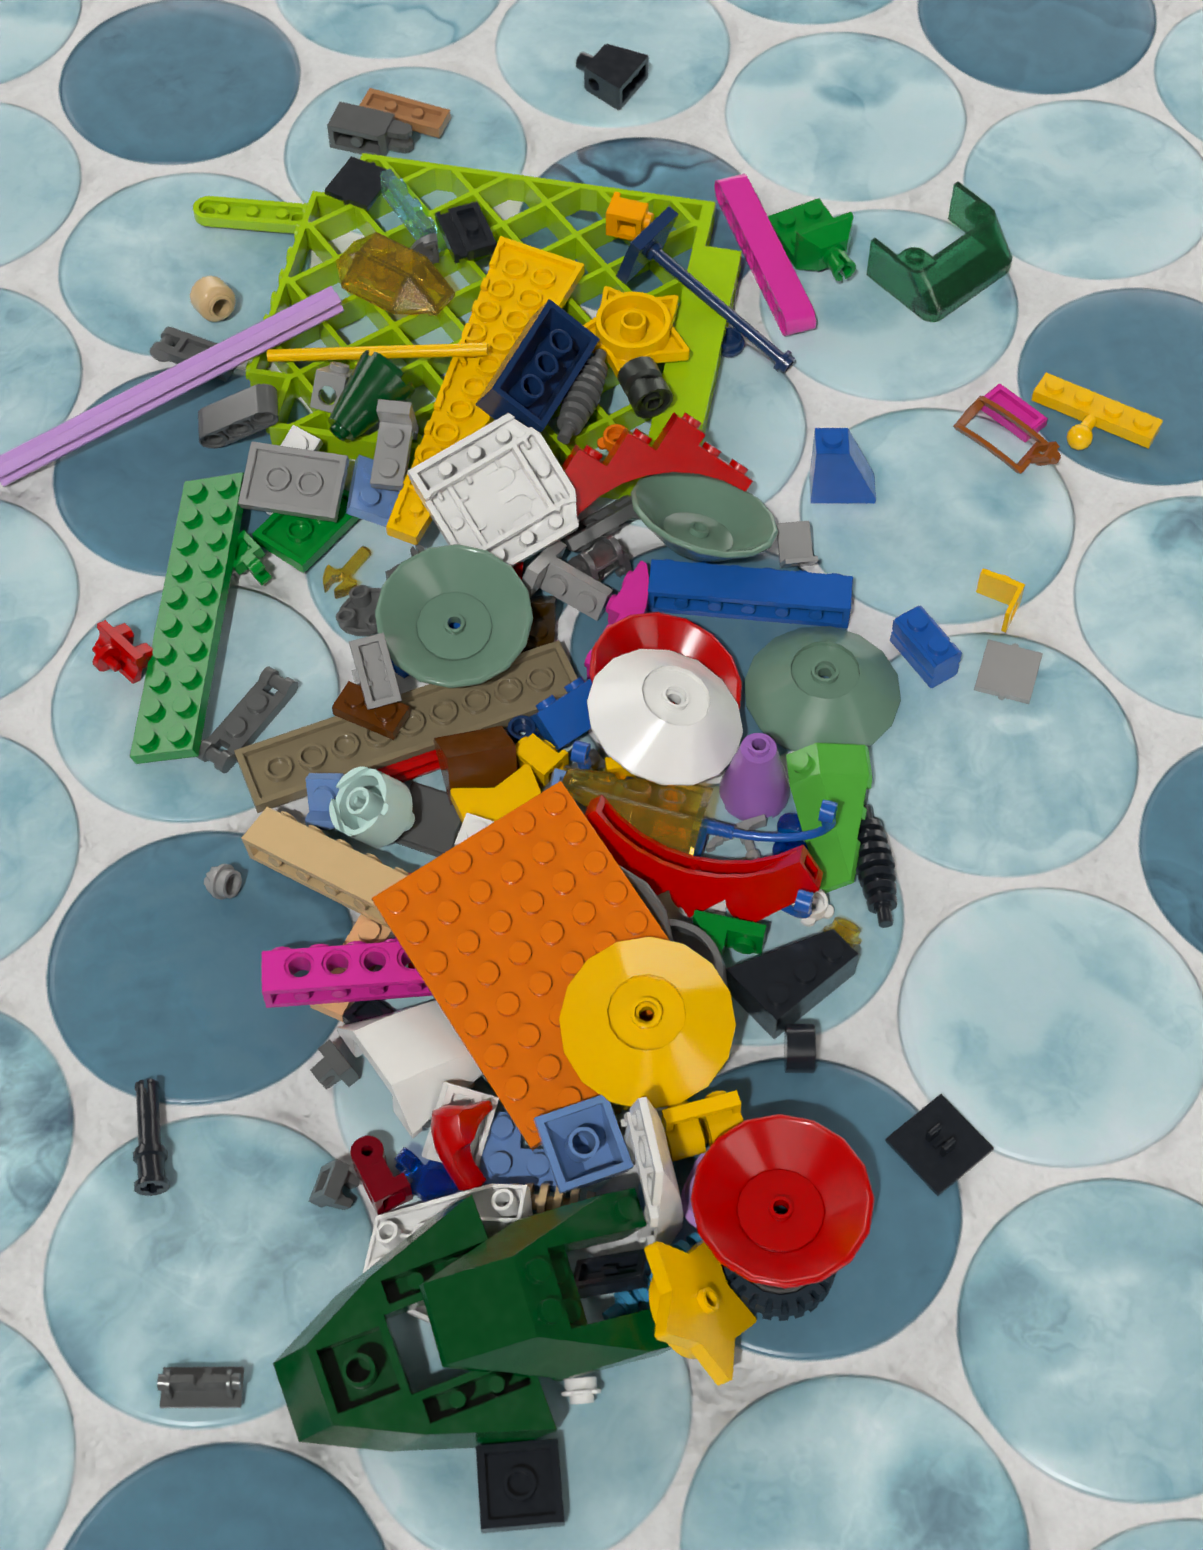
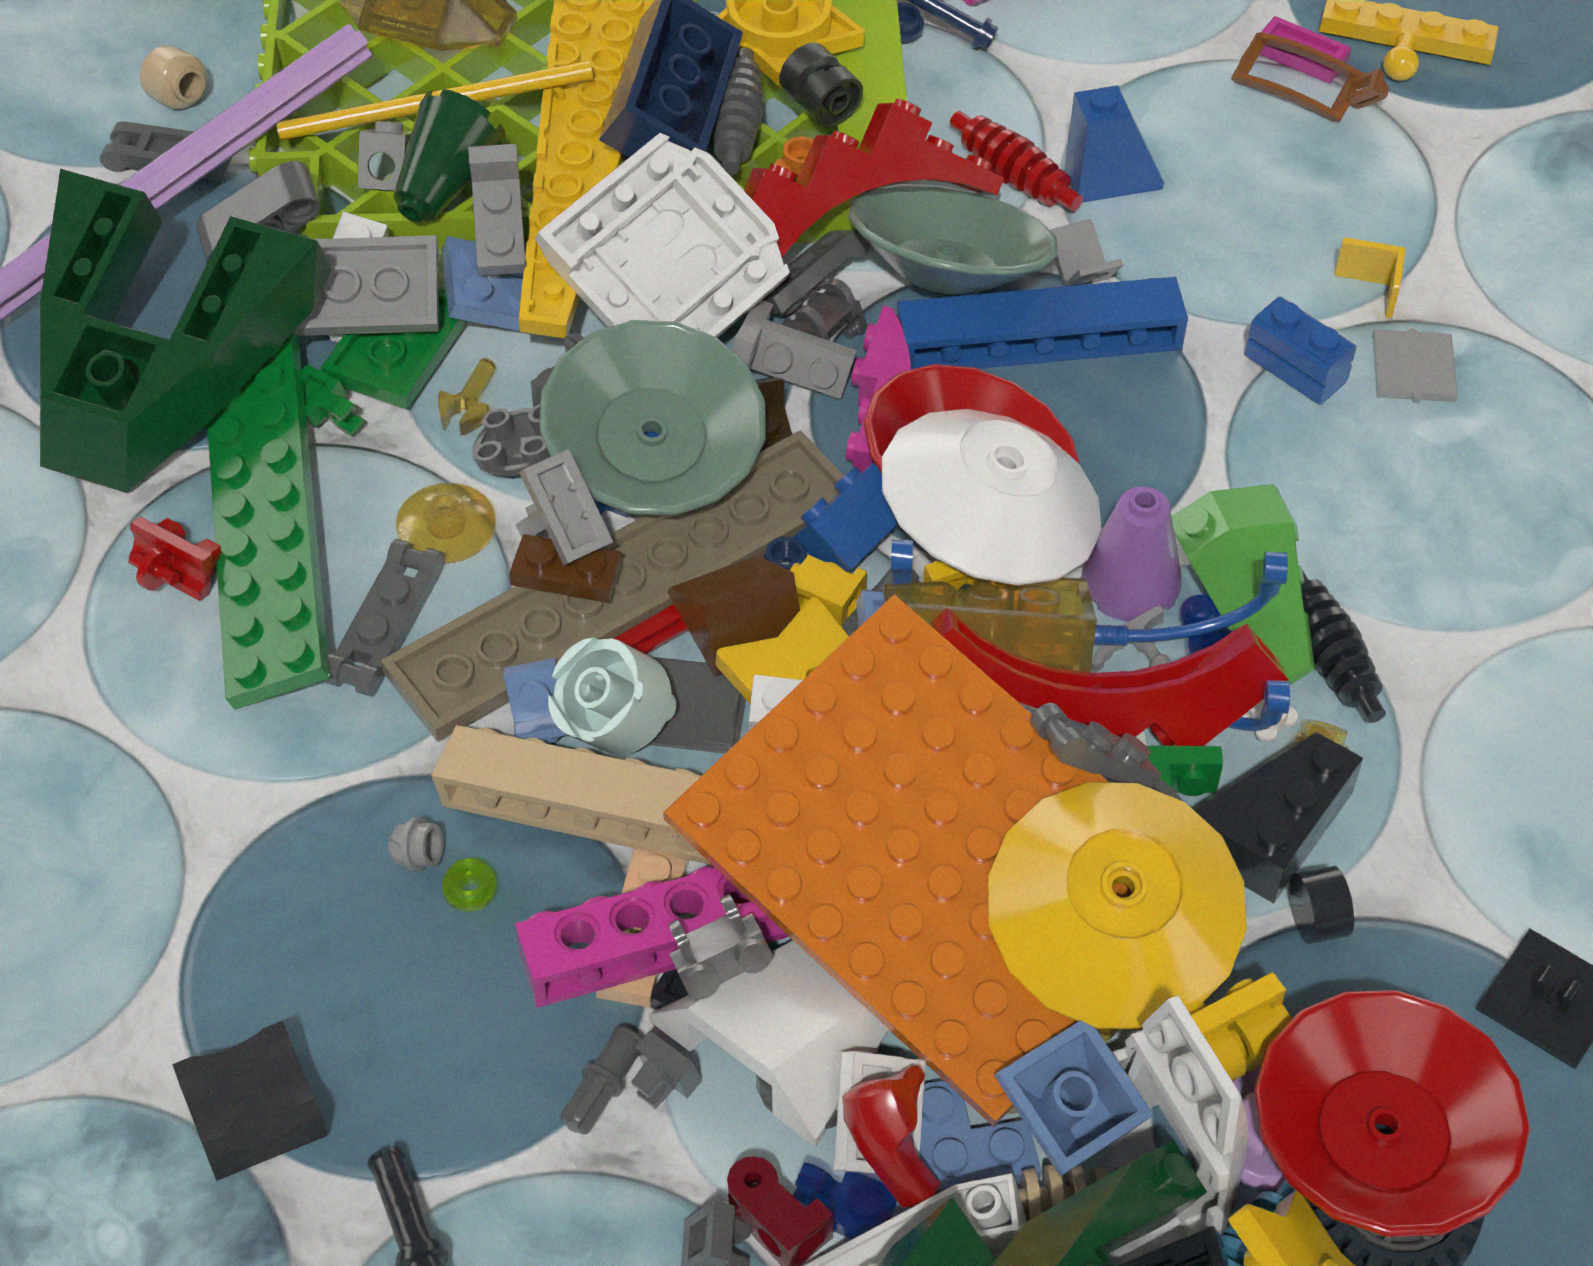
camera: 15 degrees left, 5 degrees down
(71, 1030) = (250, 1101): none -> black brick
(118, 536) = (128, 398): none -> dark green piece
(247, 907) = (469, 872): none -> clear neon green plate
(294, 1065) = (601, 1081): none -> dark grey axle
(310, 669) = (459, 532): none -> clear yellow dish
(383, 997) = (719, 951): none -> flat silver piece
(667, 914) = (1095, 747): none -> dark grey plate
(774, 464) = (1016, 160): none -> red piece
(804, 709) = (1176, 427): sand green dish -> none

